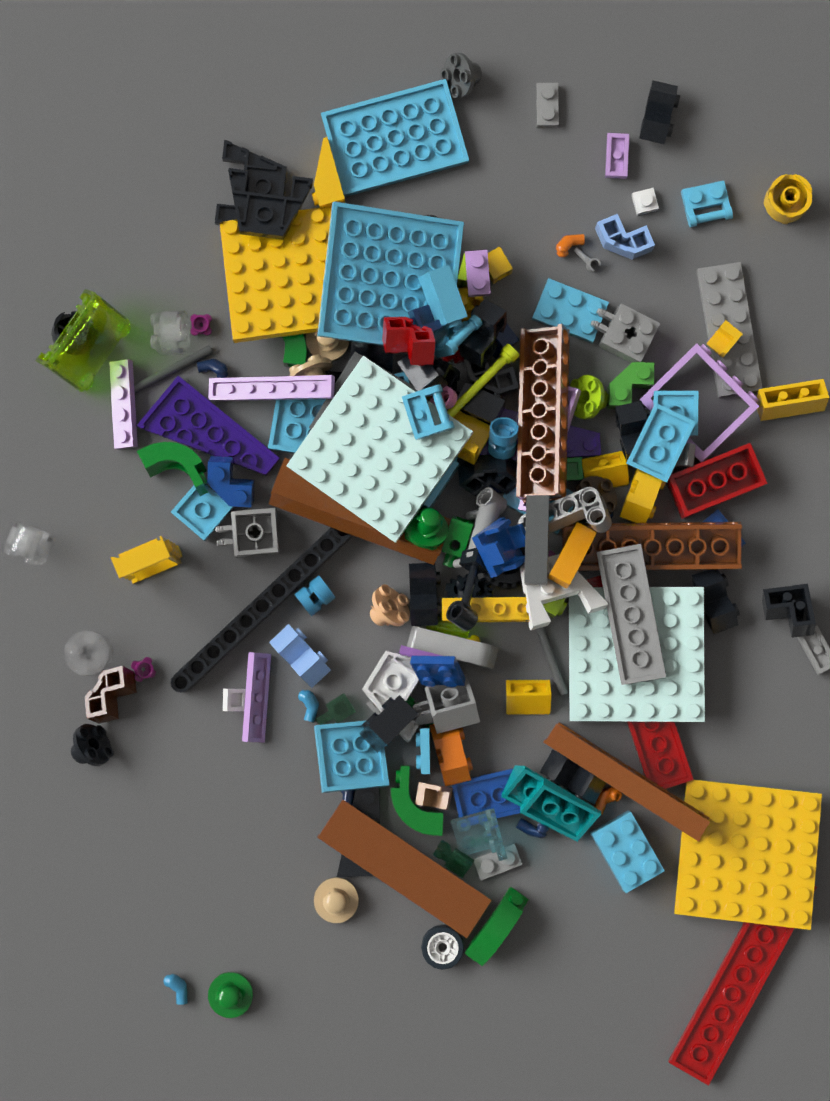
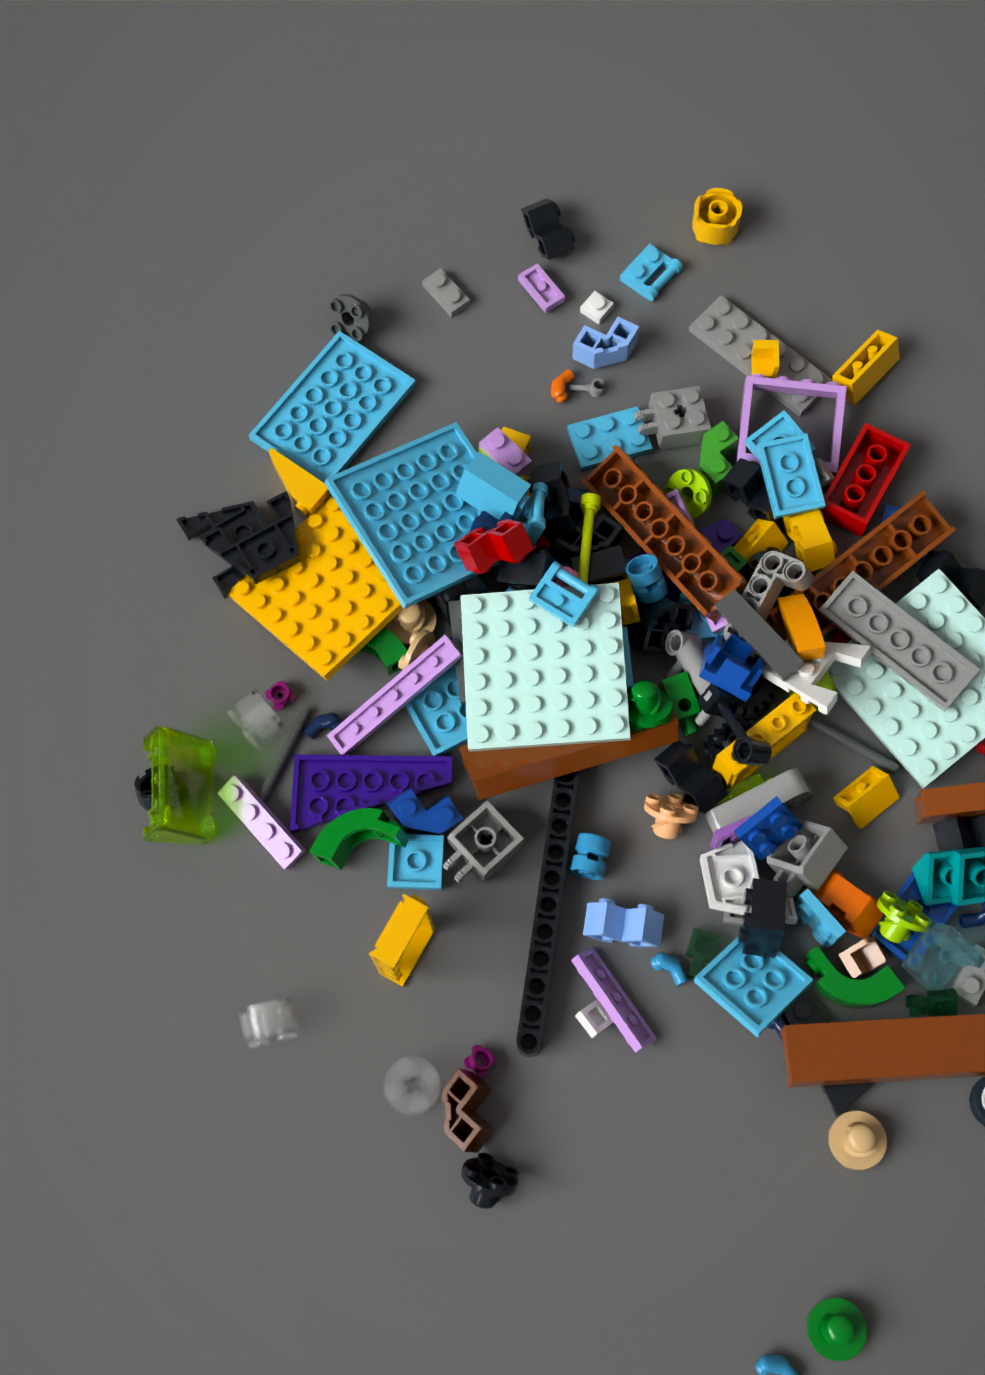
camera: 35 degrees left, 15 degrees down
(477, 791) = (901, 917): none -> lime plate

